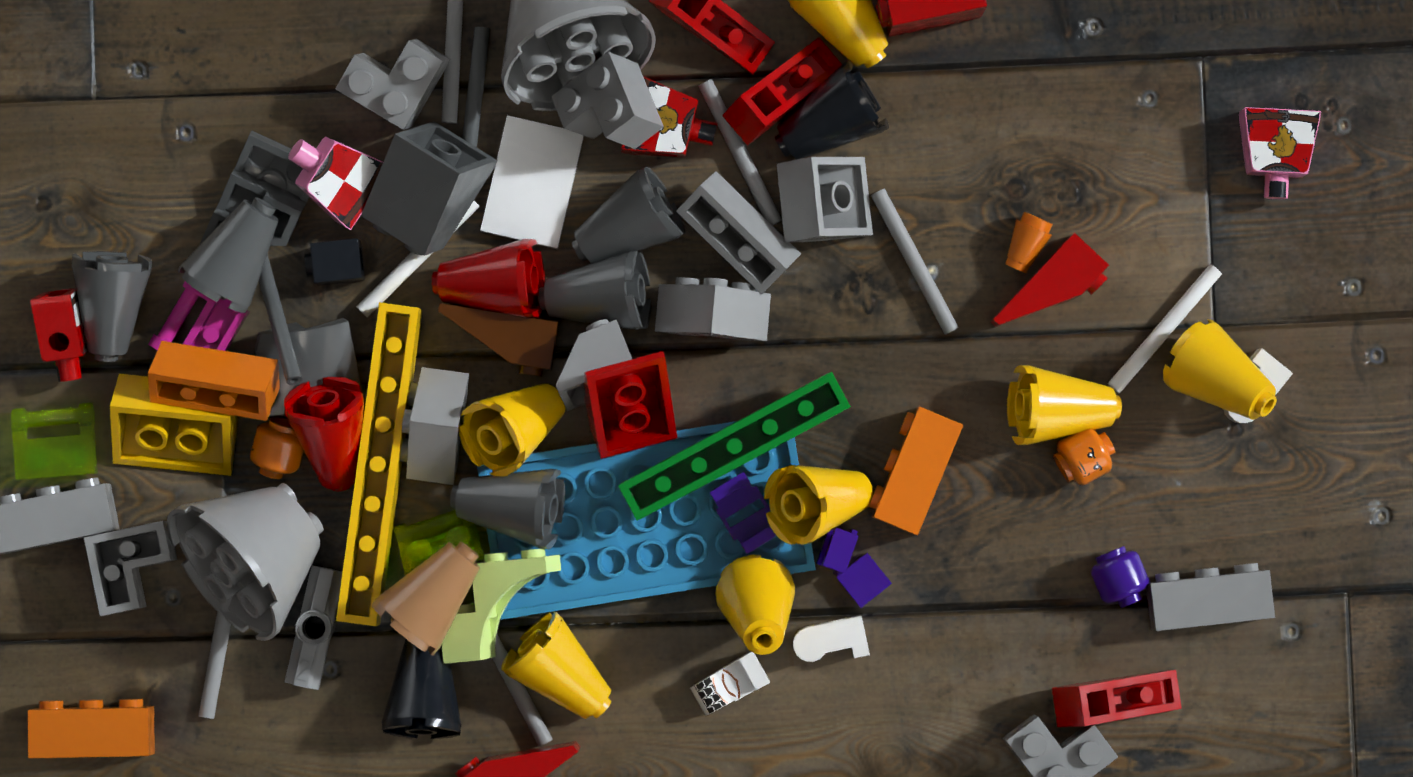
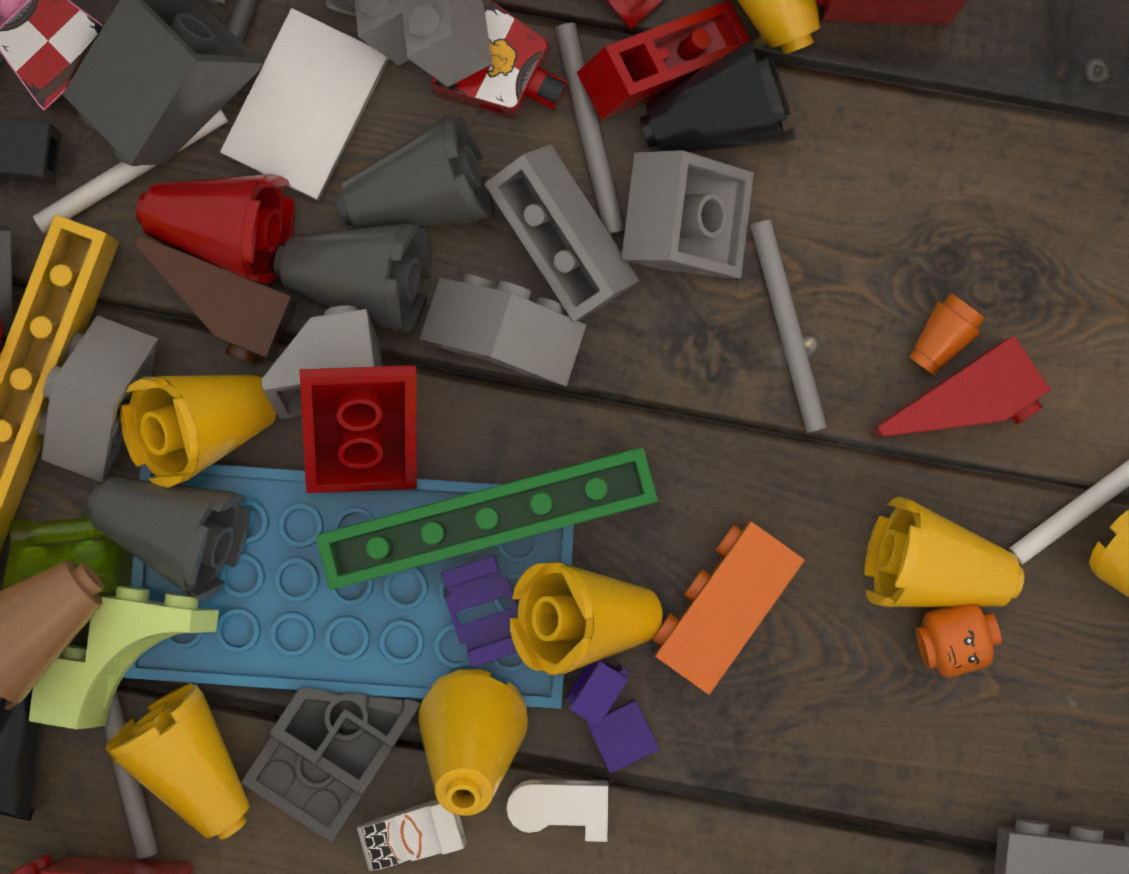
camera: 20 degrees right, 0 degrees up
(657, 641) = (327, 754): none -> dark grey slope
(1120, 576) = (968, 812): dark purple head -> none

